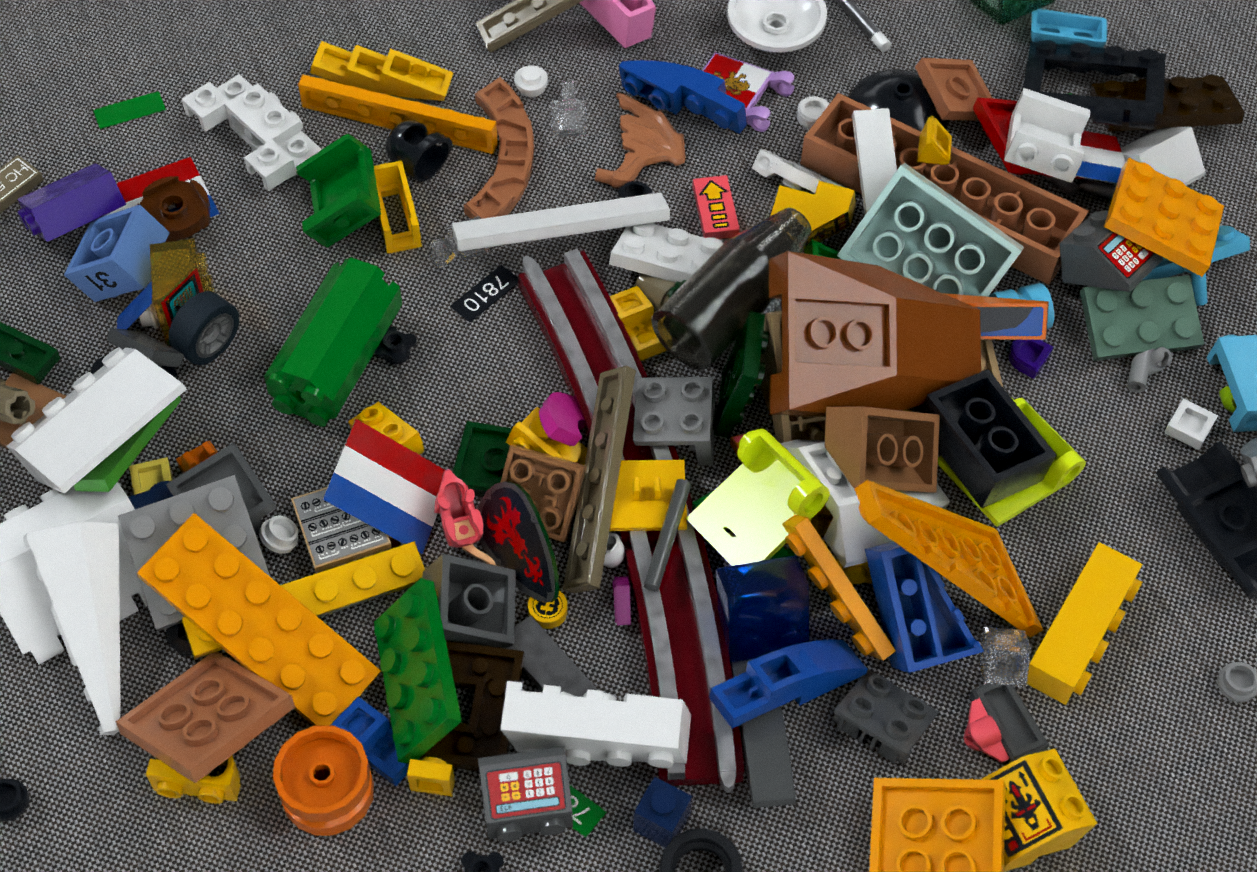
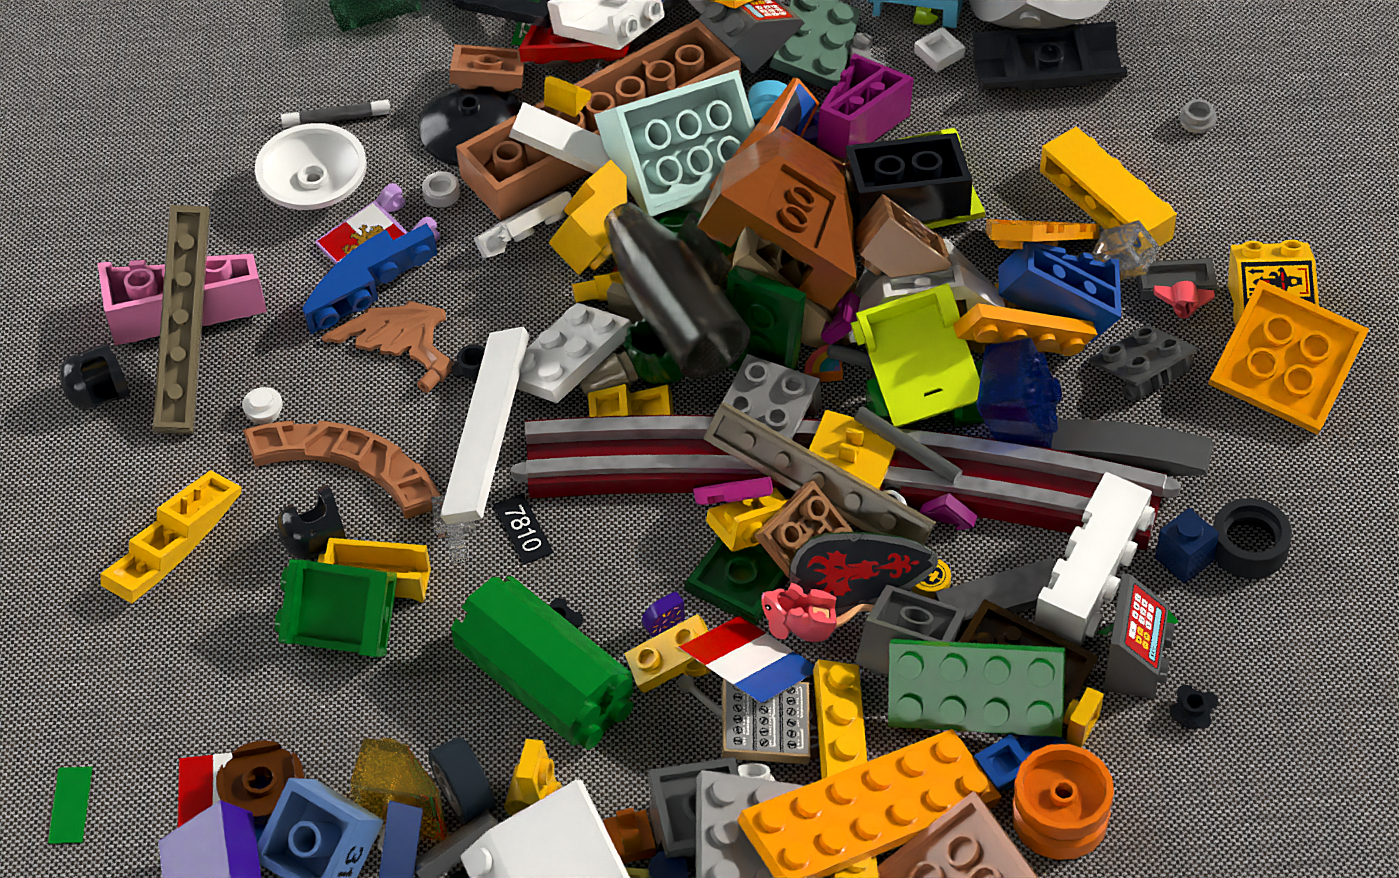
camera: 65 degrees left, 5 degrees down
(216, 376) = (531, 778): none -> yellow plate
(260, 122) = (186, 666): white bracket -> none
(389, 111) = (243, 535): light orange plate -> none
(422, 416) = (664, 614): none -> dark purple tile
(569, 113) = (331, 385): clear plate -> none
(715, 207) = (519, 303): coral tile -> none
(785, 675) = (1096, 408): blue slope -> none
(790, 434) = (841, 323): none -> magenta tile
(1062, 376) = (863, 105): none -> magenta wedge

